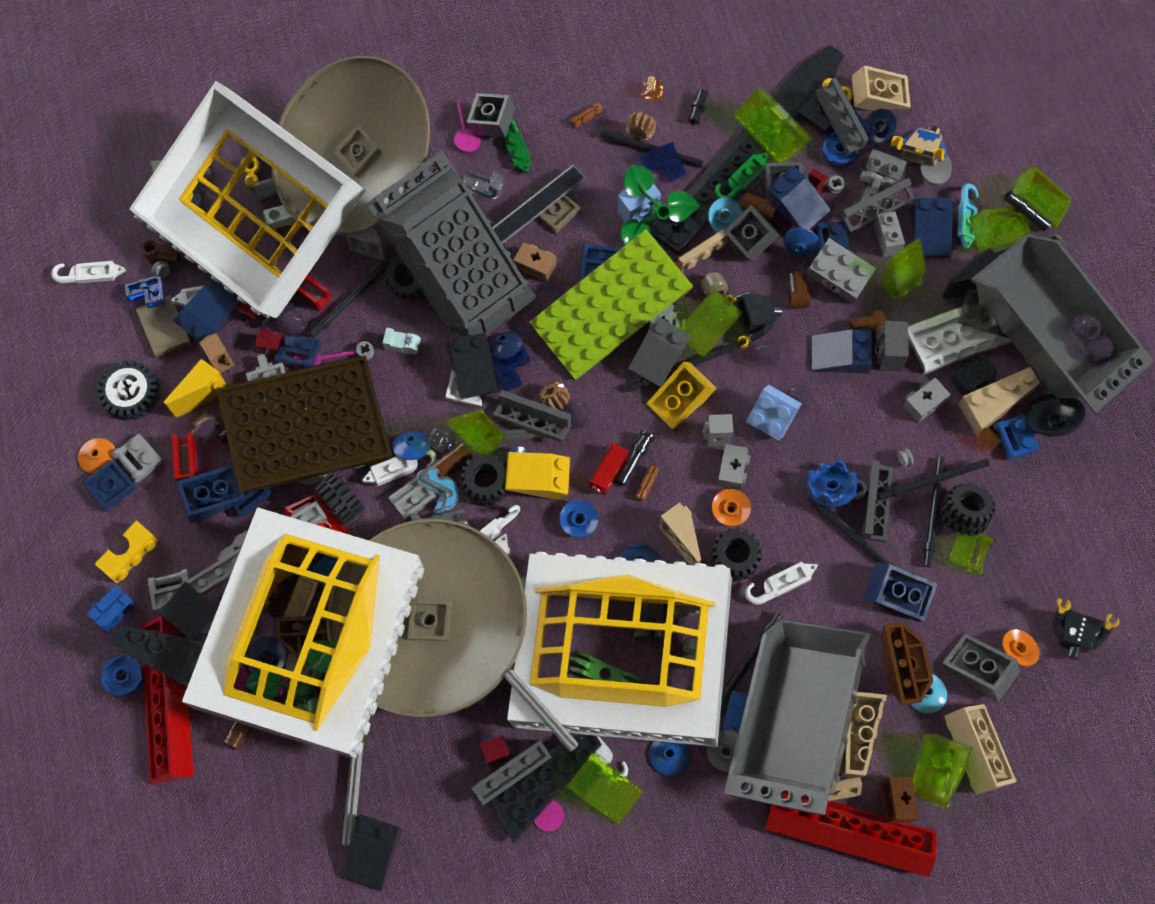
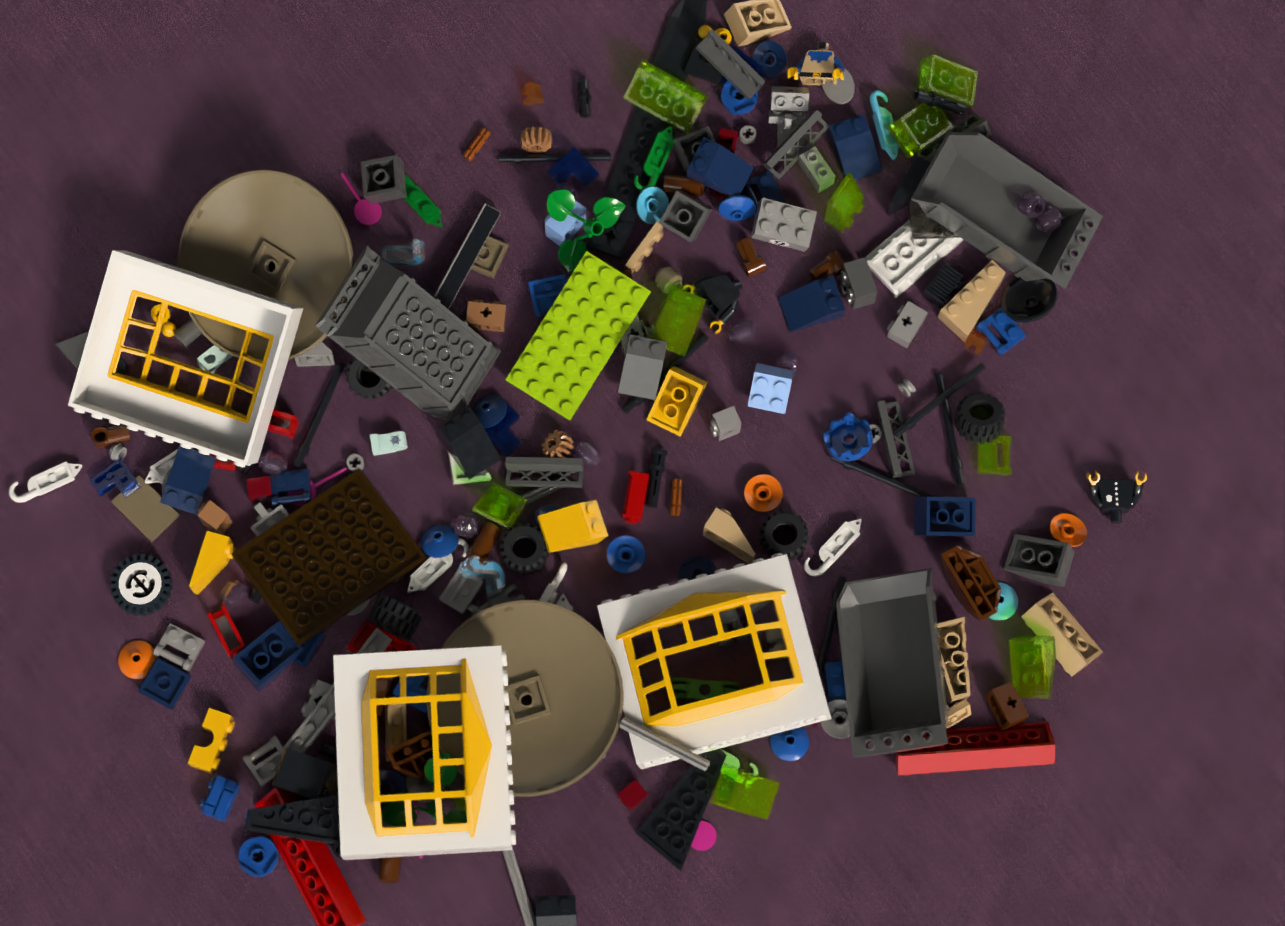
camera: 25 degrees left, 5 degrees up
(511, 772) = (654, 809): dark grey fence -> none
(733, 456) = (748, 464): light grey brick -> none

